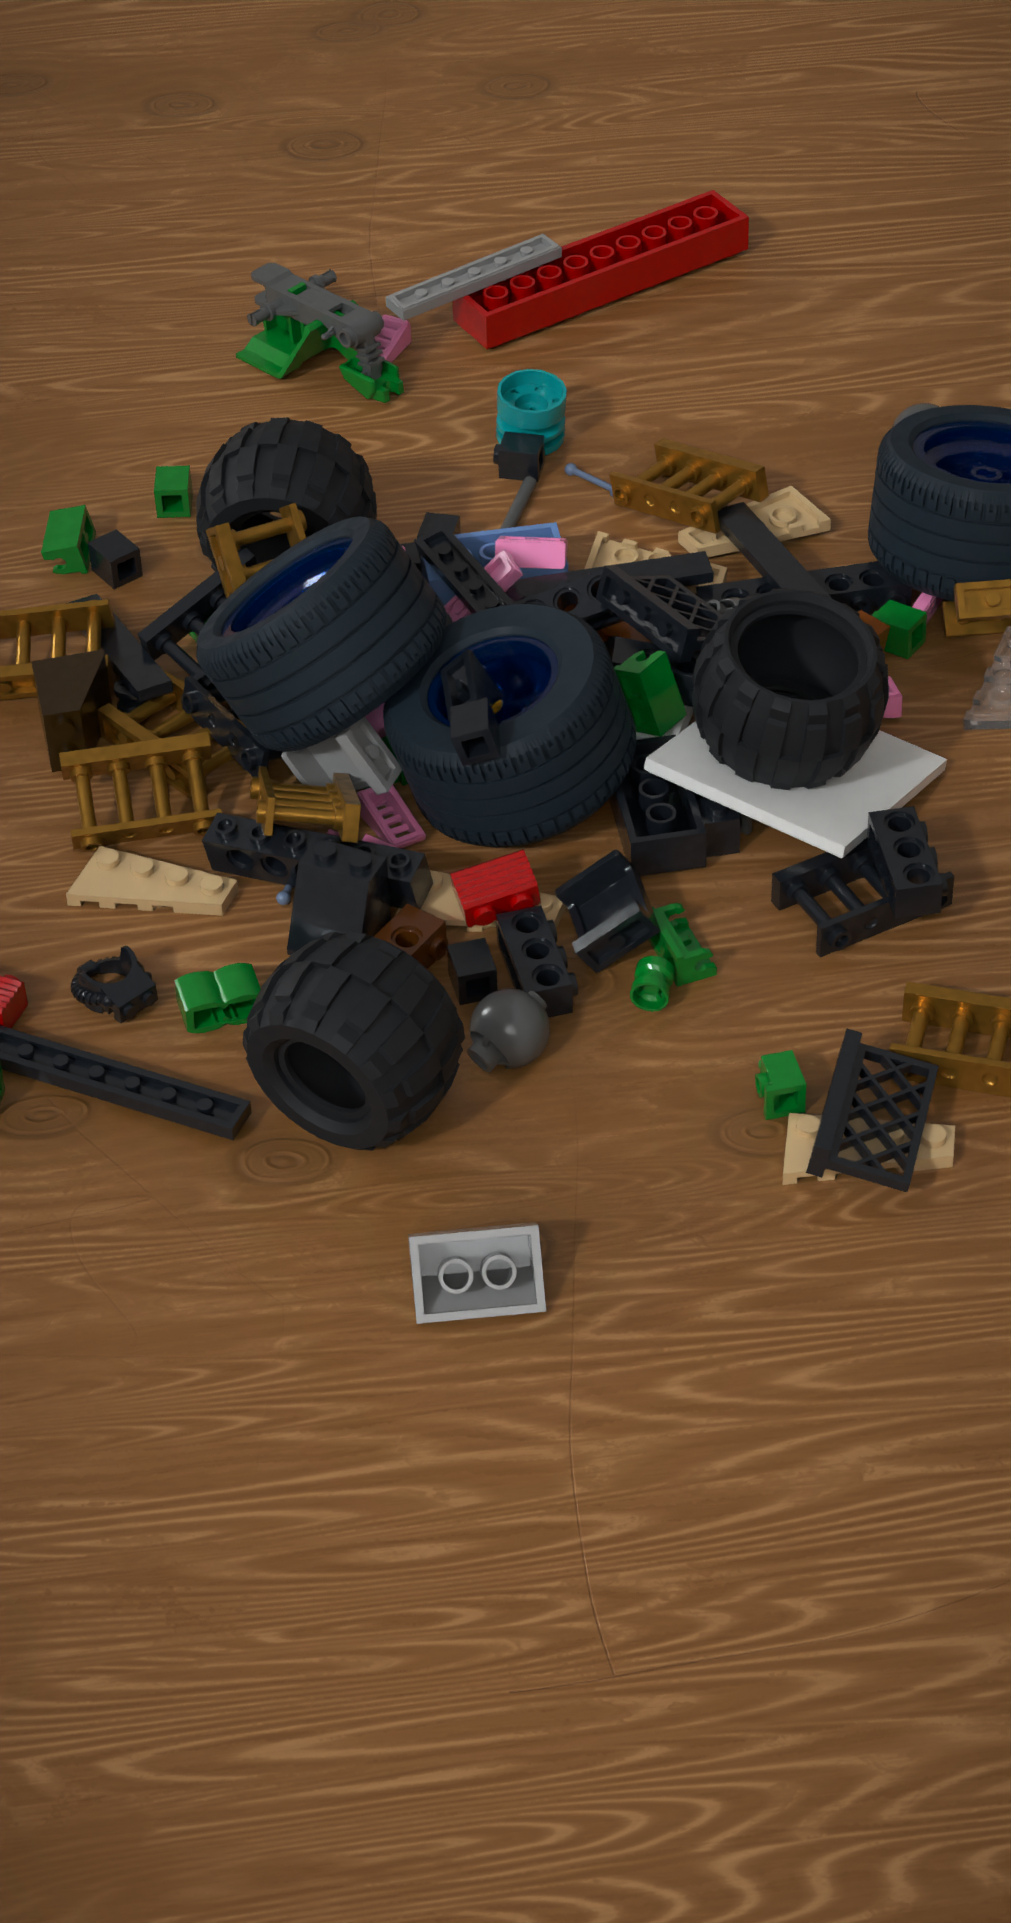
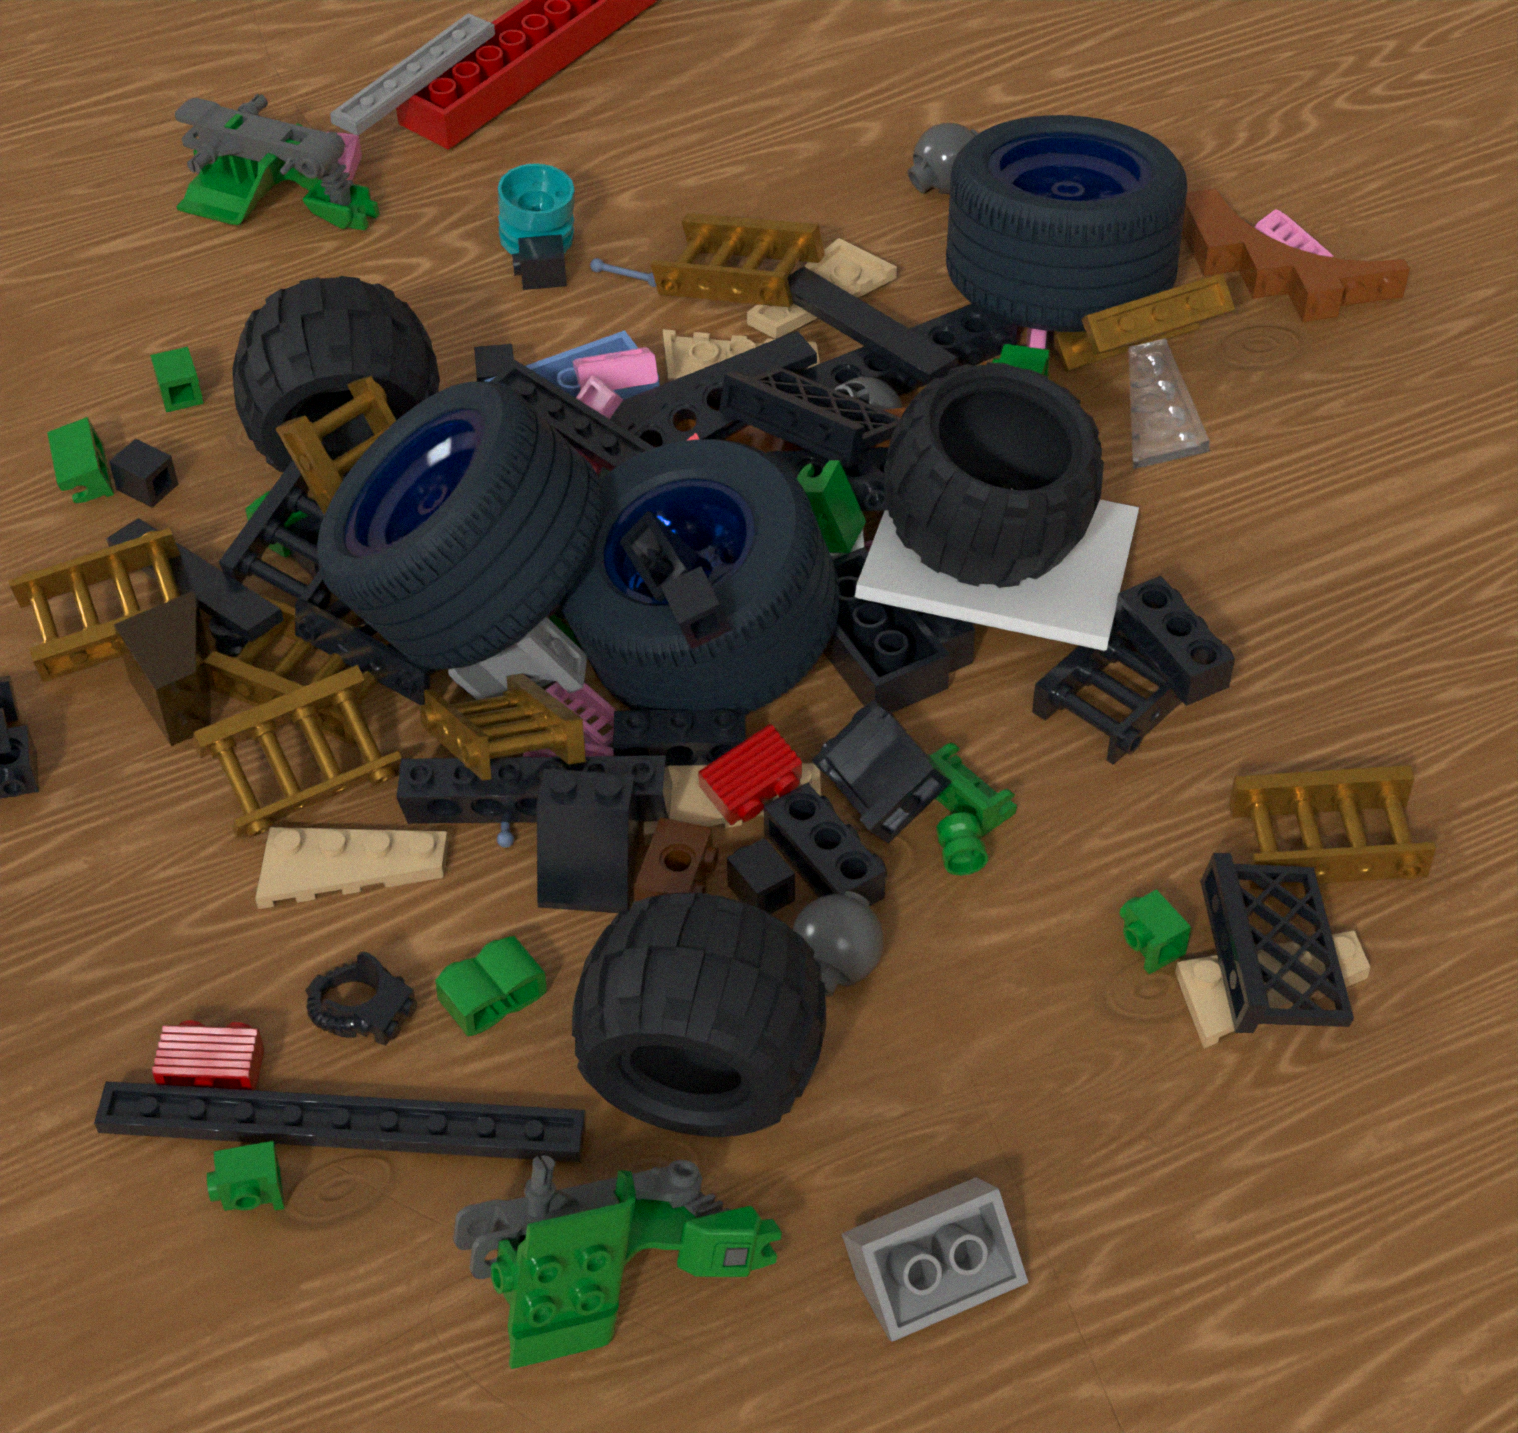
camera: 20 degrees left, 5 degrees up
(184, 1189) = (569, 1248): none -> green piece
(451, 846) = (681, 735): none -> black brick
(519, 503) = (560, 318): dark grey bar -> none

